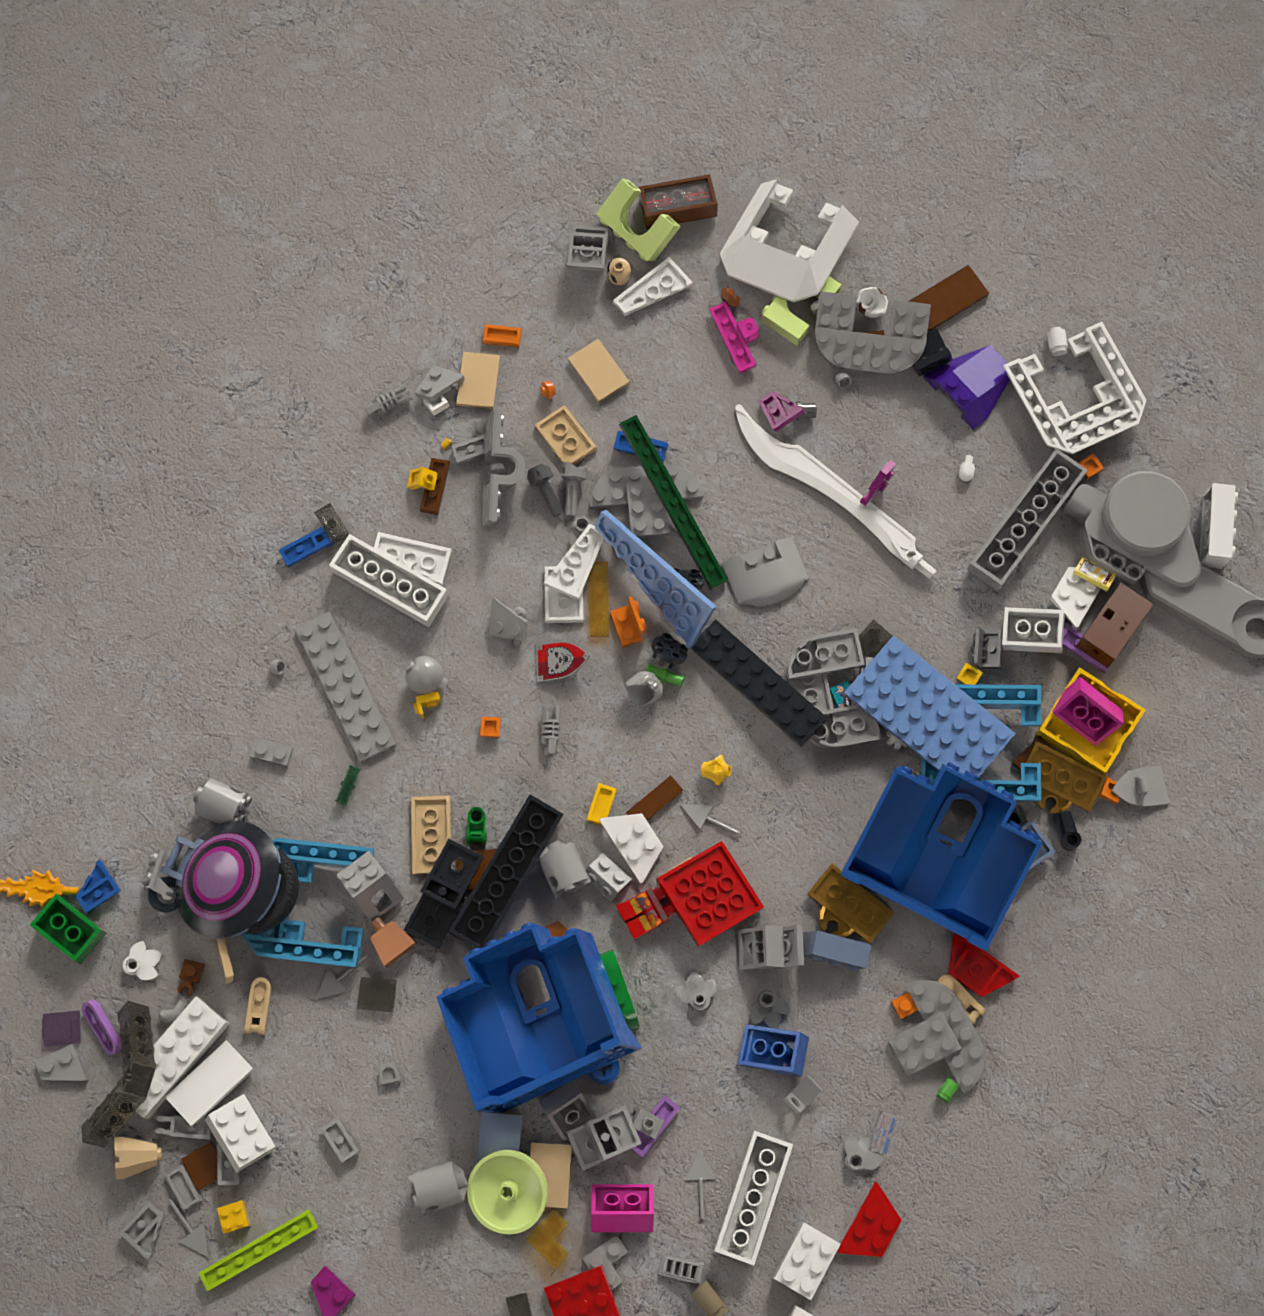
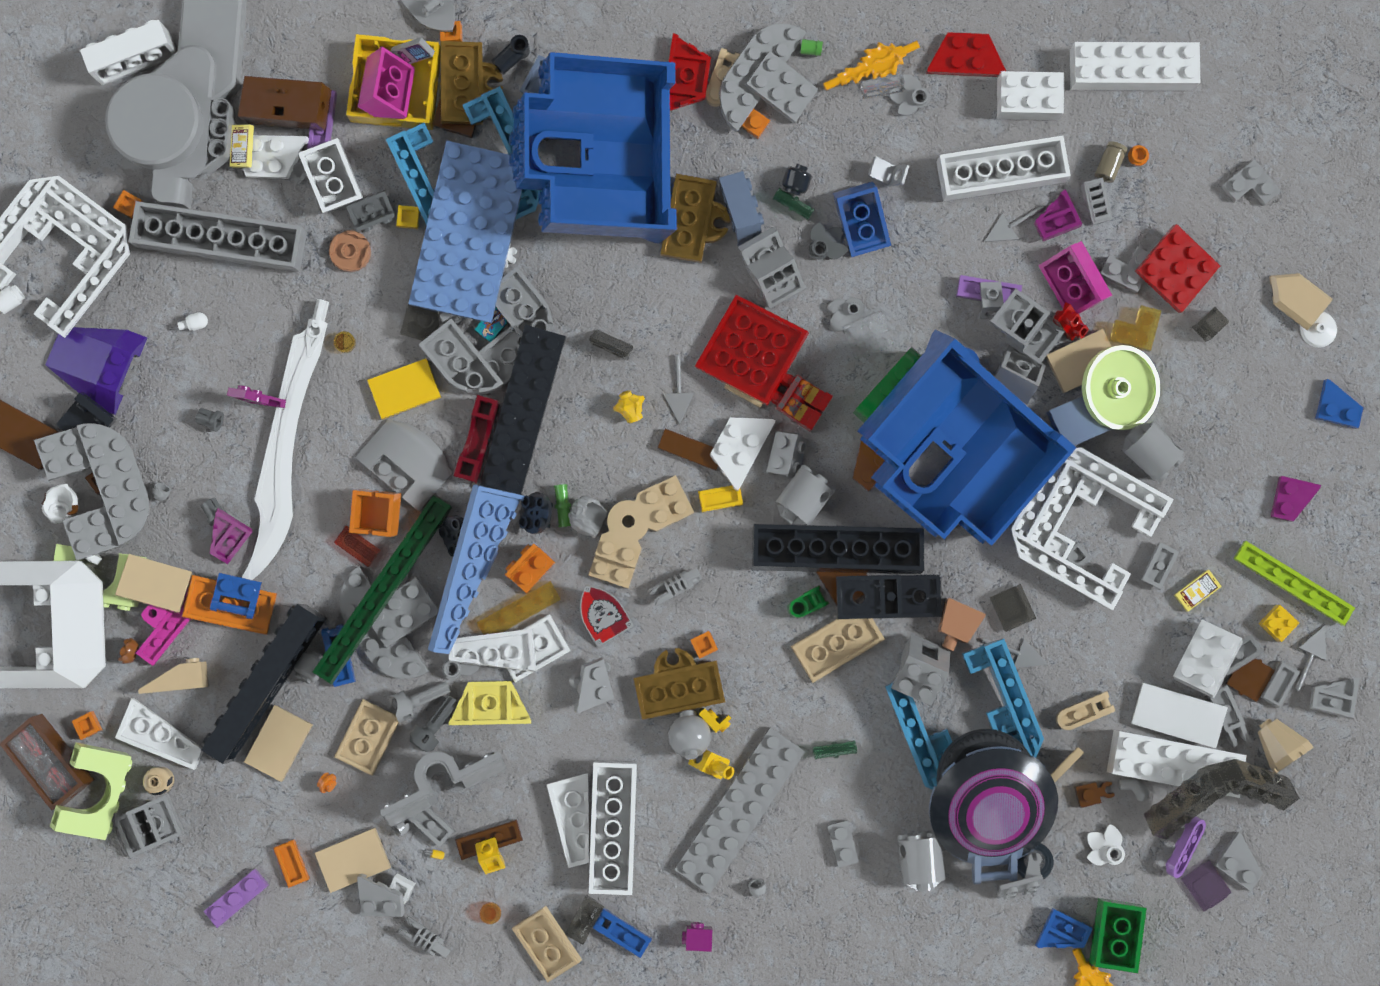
camera: 120 degrees left, 10 degrees up
(267, 601) = (698, 937): none -> magenta brick
(301, 1162) = (1197, 590): none -> tile
(330, 486) = (546, 944): none -> tan tile
(379, 458) = (490, 913): none -> clear orange plate
(391, 683) = (714, 765): none -> yellow bracket
(410, 1047) = (1039, 521): none -> white slope
(469, 690) = (678, 686): none -> pearl gold plate
(499, 285) = (236, 898): none -> medium lavender plate
(537, 540) = (490, 704): none -> light yellow wing
(587, 1180) = (1070, 322): none -> red hips
(621, 743) = (619, 547): none -> tan plate
(646, 418) = (306, 665): none -> light grey head
(649, 380) = (263, 684): none -> black brick
(684, 1224) = (1058, 218): none -> magenta wing
(687, 328) = (183, 676): none -> tan slope
(690, 242) = (87, 725): none -> orange plate
(719, 503) = (357, 546): none -> clear red tile
(725, 386) = (200, 598): none -> orange tile
(733, 397) = (236, 588): none -> blue plate
(739, 527) = (375, 511): none -> orange piece
(743, 626) = (477, 441): none -> dark red arch
(771, 338) = (154, 583): none -> tan tile
(776, 783) = (611, 344): none -> clear smoke slope
(817, 998) = (793, 203): none -> clear green pin
(827, 602) = (404, 388): none -> yellow tile
(836, 1012) = (796, 179): none -> black head
(881, 443) = (210, 419): none -> dark grey bush
(890, 575) = (344, 342): none -> clear yellow tile
(904, 1142) = (878, 62): none -> light orange piece
(964, 617) = (350, 251): none -> nougat tile
(1108, 748) = (413, 50): none -> tile

